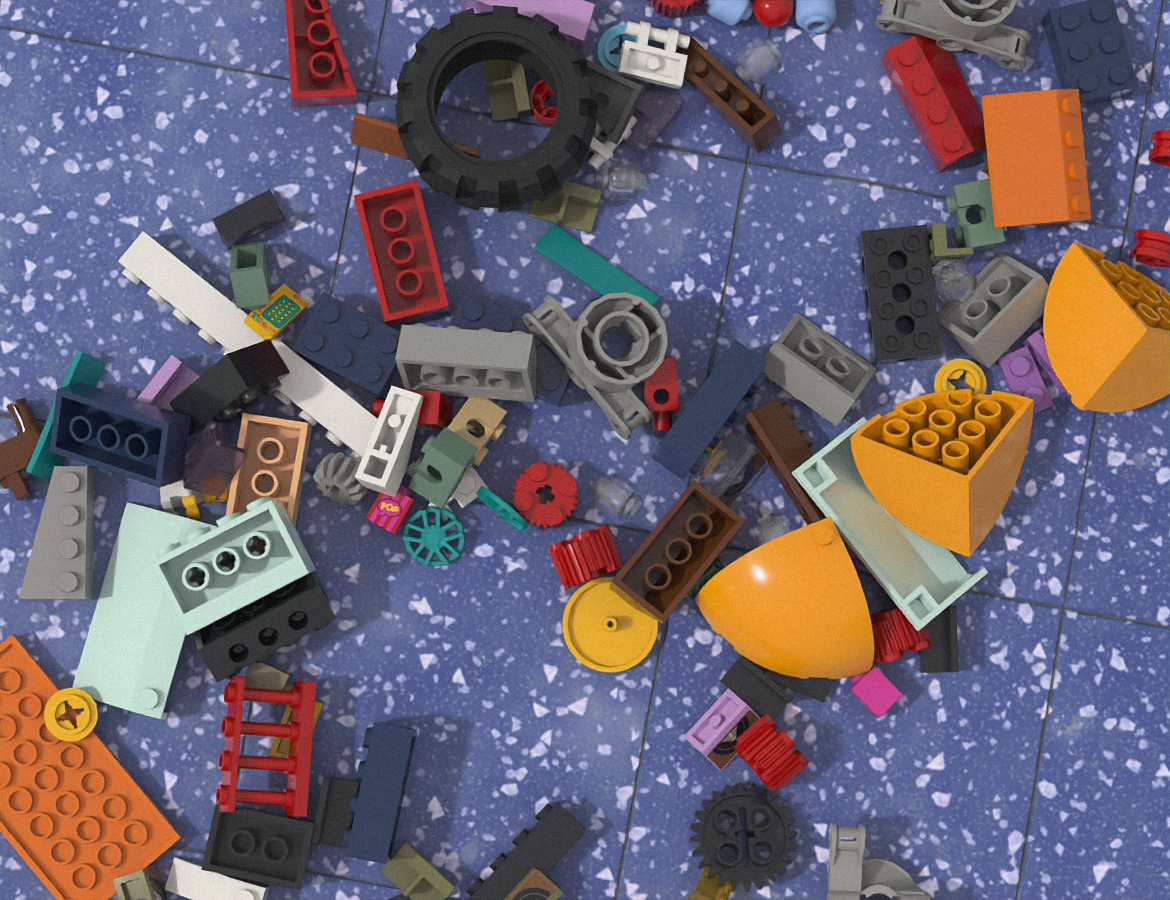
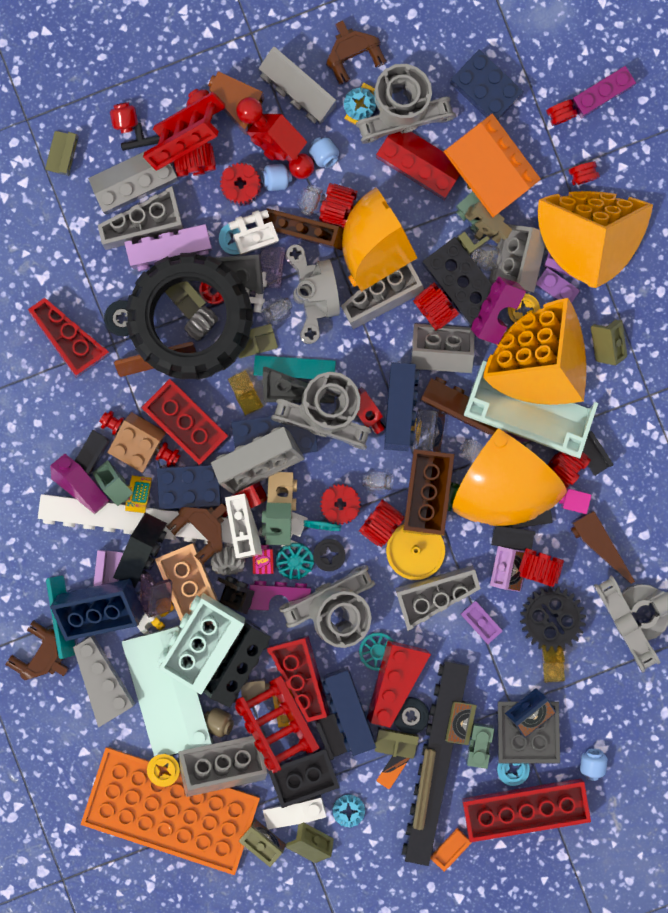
camera: 30 degrees left, 5 degrees up
(154, 758) = (221, 766): none -> light grey slope
(190, 696) = (219, 722): none -> dark tan head
(202, 246) = (77, 483): none -> magenta slope
(320, 241) = (137, 441): none -> medium nougat brick
(324, 532) = (236, 594): none -> black bracket
(344, 406) = (207, 523): none -> reddish brown connector
(345, 700) = (301, 675): none -> red wedge
(359, 554) = (264, 593): none -> magenta arch
(387, 58) = (111, 321): none -> black bush
(448, 612) = (329, 597): none -> light grey piece
(471, 733) = (376, 651): none -> teal wheel
(472, 787) = (395, 680): none -> red wedge
(479, 856) = (421, 713): none -> black bush
(480, 543) = (337, 560): none -> black gear
(506, 133) = (201, 323): none -> light grey gear
(508, 266) = (245, 392): none -> clear yellow slope
(568, 287) = (281, 386): none -> dark grey wing
(598, 701) = (435, 594): none -> light grey wedge
(641, 780) = (481, 622): none -> medium lavender plate
(691, 185) = (321, 289): none -> light grey piece
(782, 244) = (382, 296): none -> light grey wedge
(792, 87) = (337, 205): none -> red brick
(813, 162) = (374, 241): none -> light orange brick
(841, 304) = (435, 306): none -> red brick
(872, 760) = (593, 534): none -> reddish brown slope
(945, 340) = (503, 294): none -> magenta arch
(990, 240) = (488, 225): none -> dark tan piece
(1052, 499) = (609, 342): none -> olive panel

